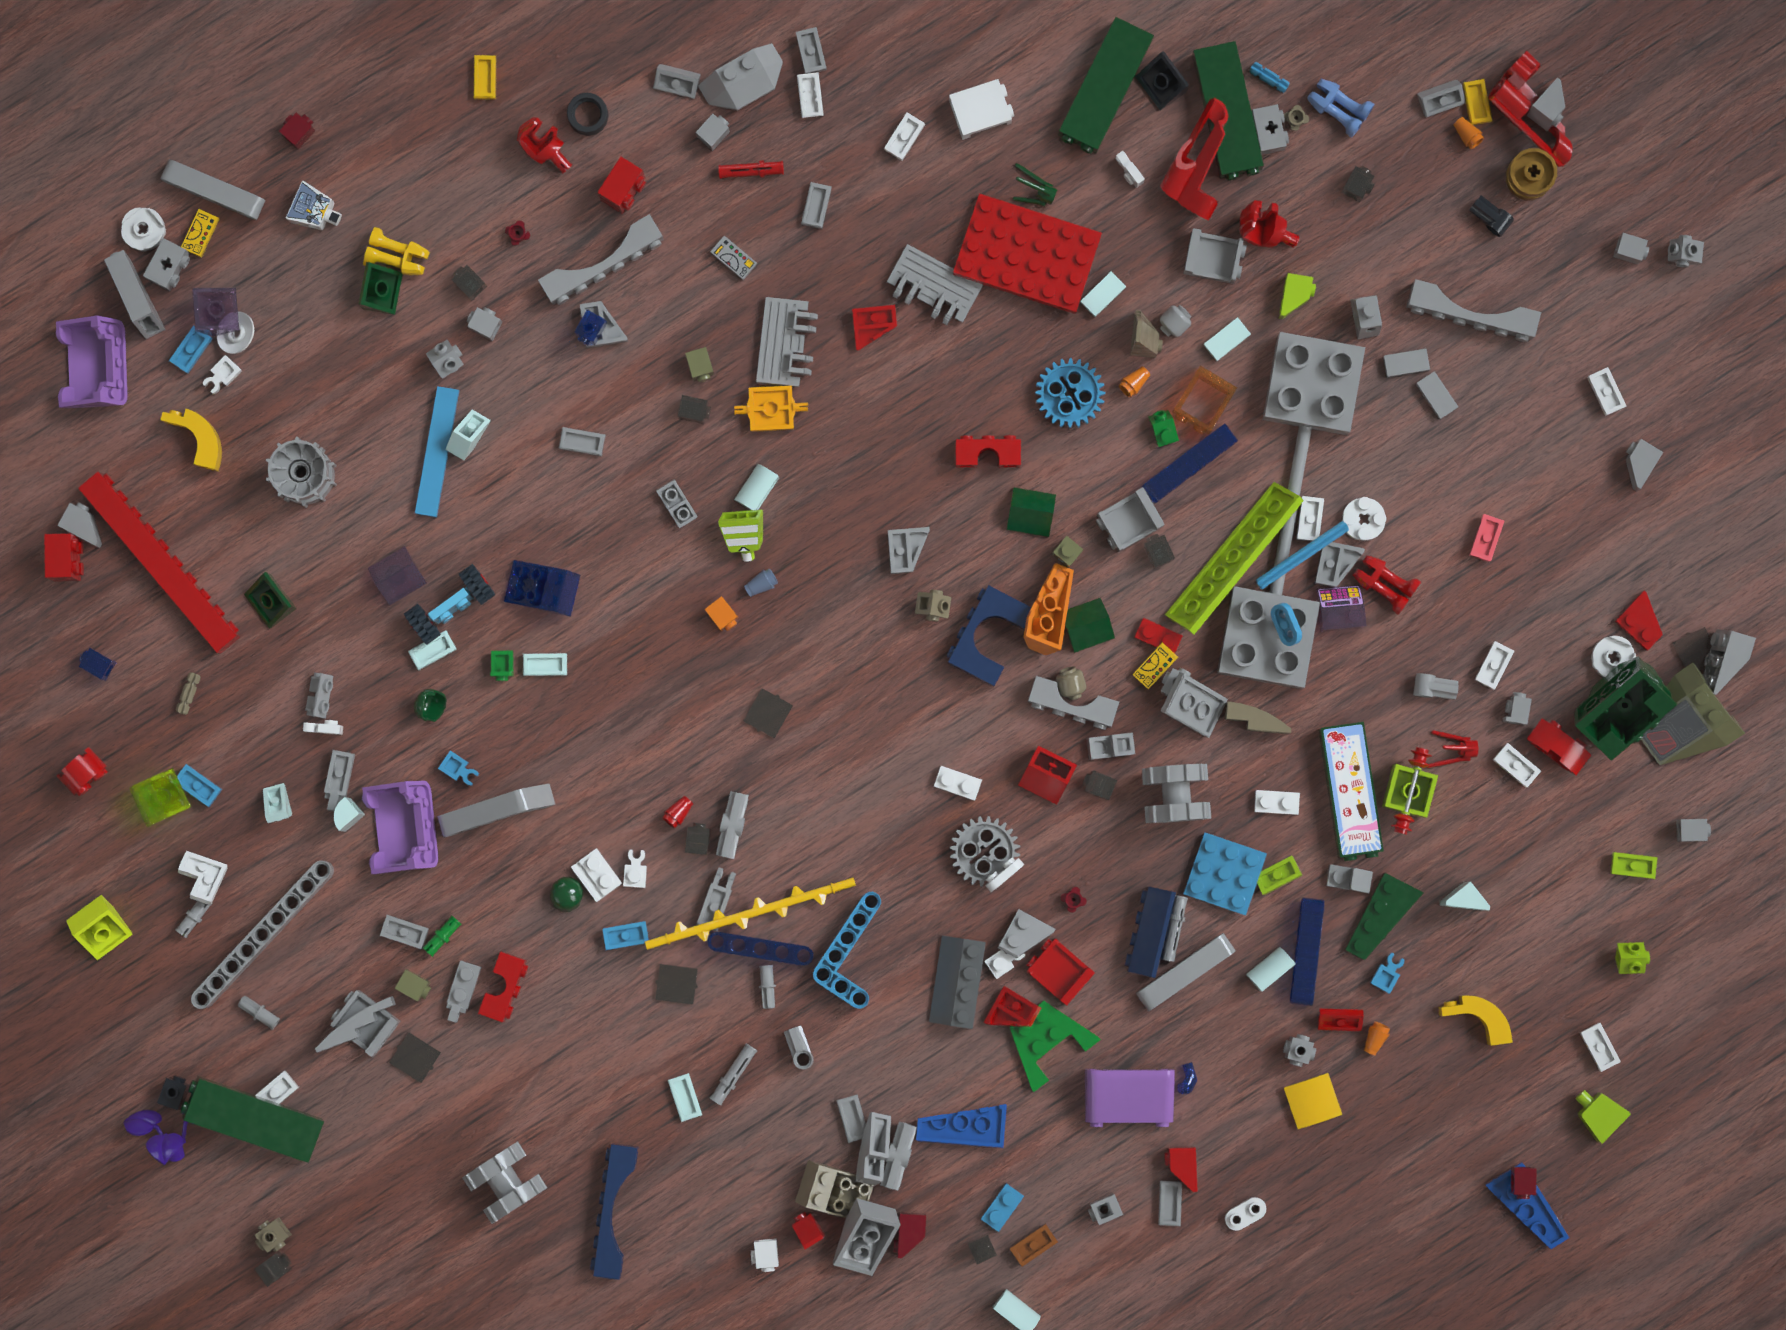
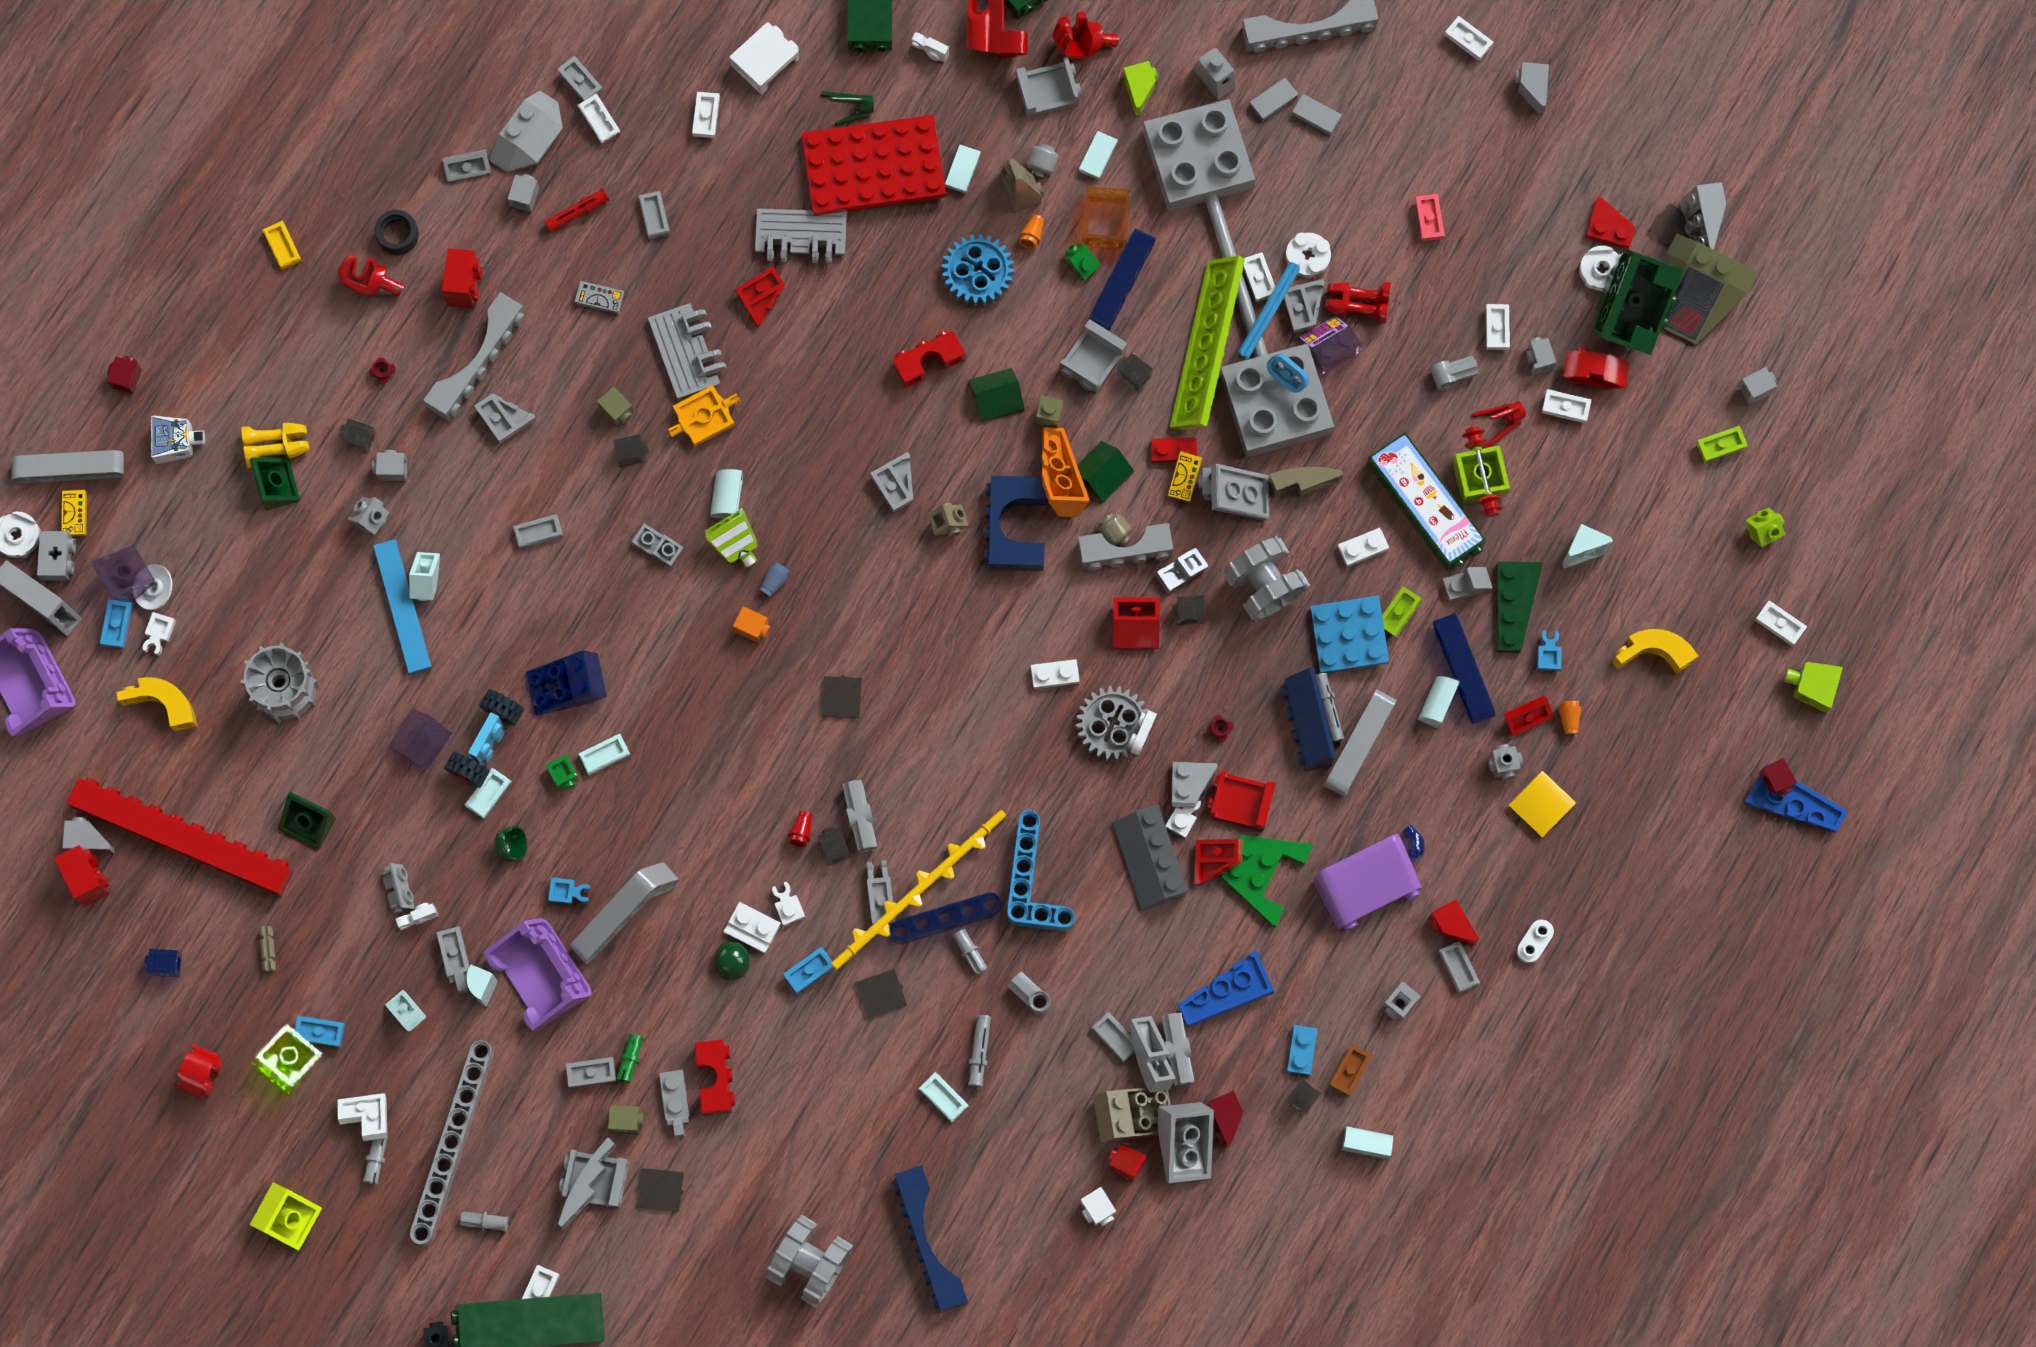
camera: 30 degrees left, 10 degrees down
(590, 328) = (495, 420): clear blue brick -> none

